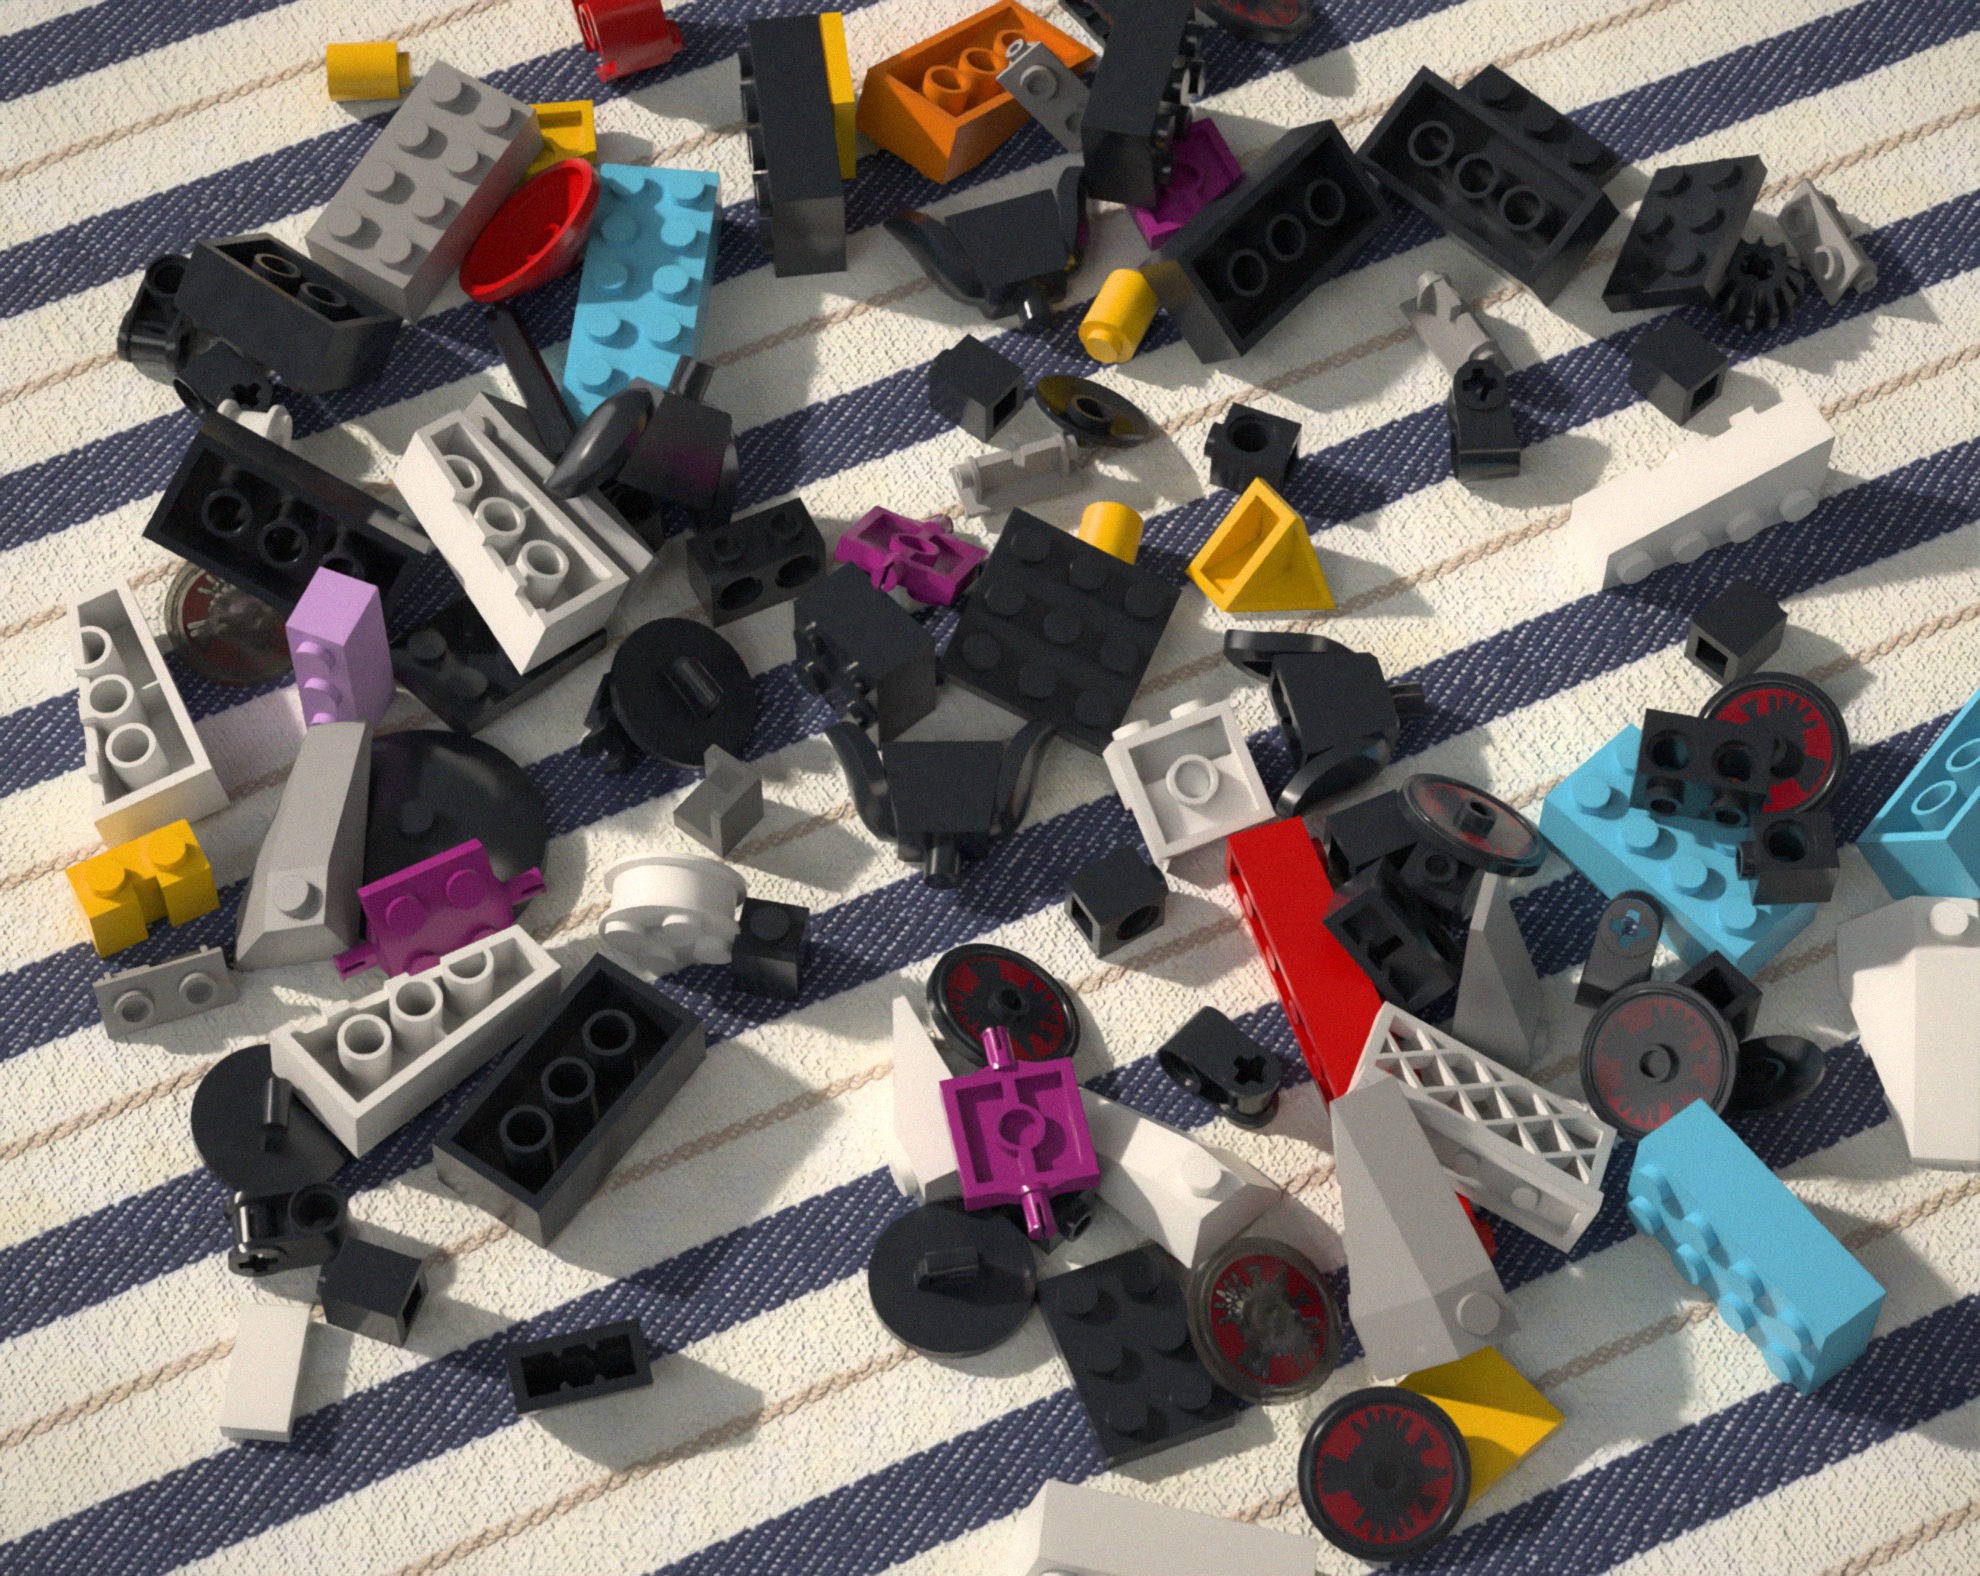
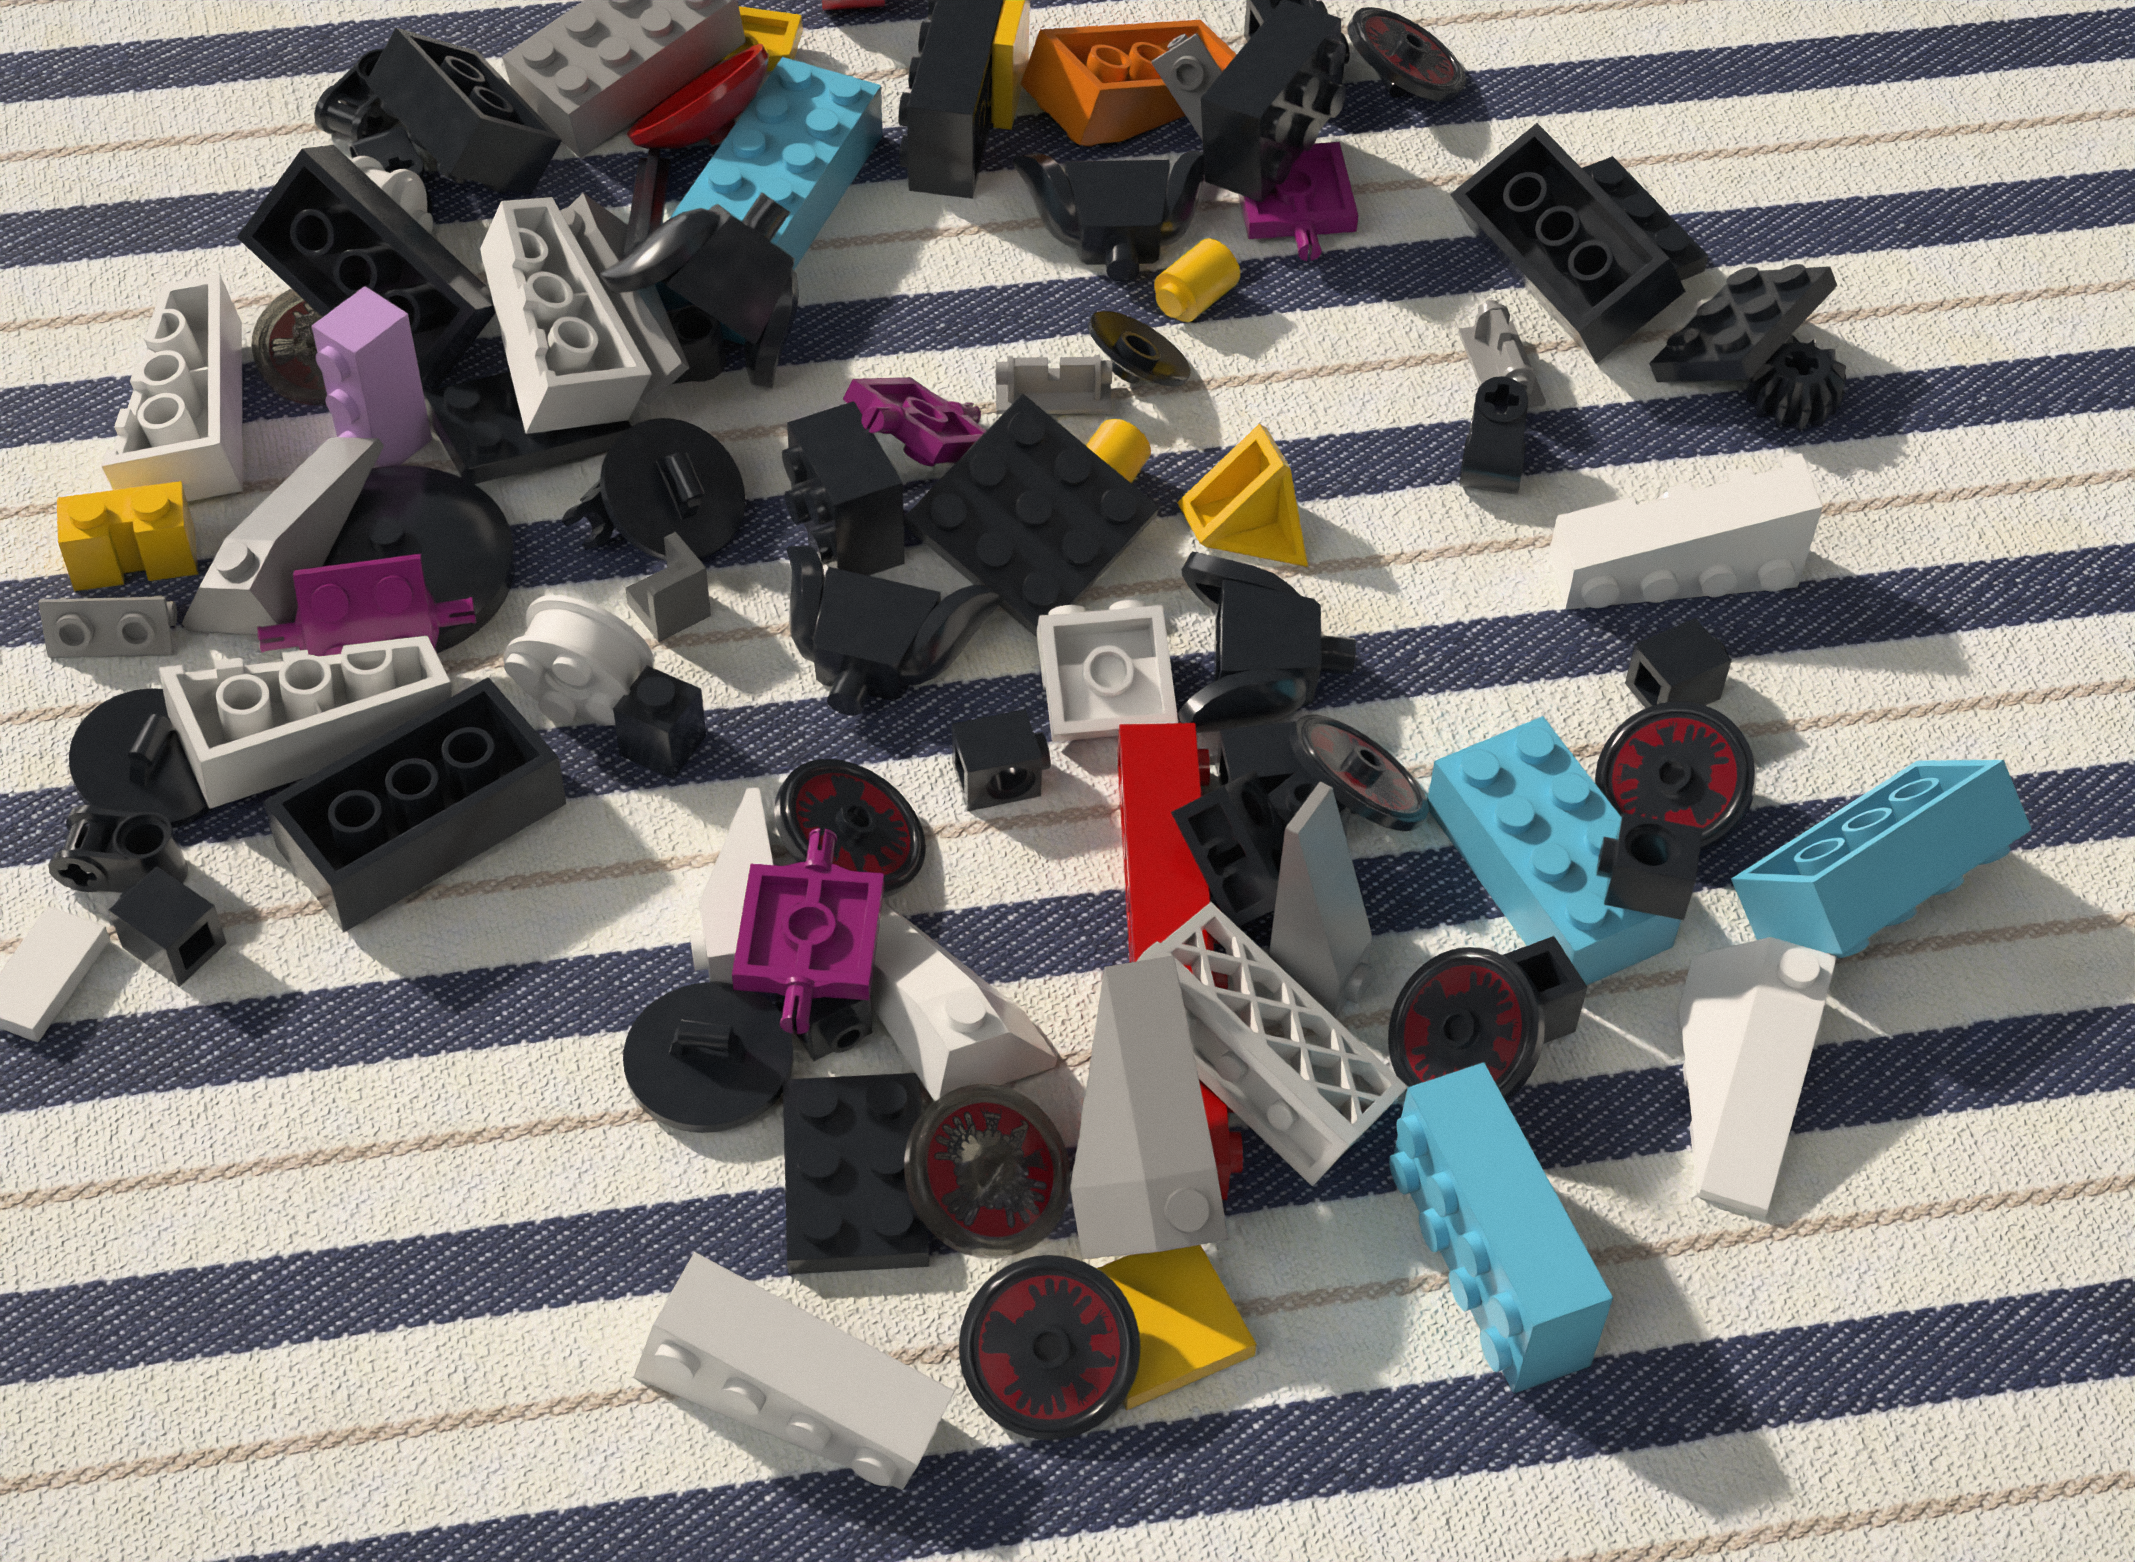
camera: 15 degrees right, 5 degrees down
(578, 1367) = (318, 1039): black brick -> none
(756, 562) = (777, 390): black brick -> none
(976, 388) = (1044, 308): black brick -> none
(1223, 1068) = (1041, 933): black piece -> none
(1251, 447) = (1283, 406): black brick -> none
(1266, 242) = (1347, 243): black brick -> none
(1619, 958) = (1457, 919): black piece -> none
(1677, 370) = (1699, 437): black brick -> none
(1703, 755) = (1590, 763): black brick -> none
(1775, 1075) = (1576, 1072): black dish -> none
(1823, 243) = (1877, 365): light grey hinge -> none

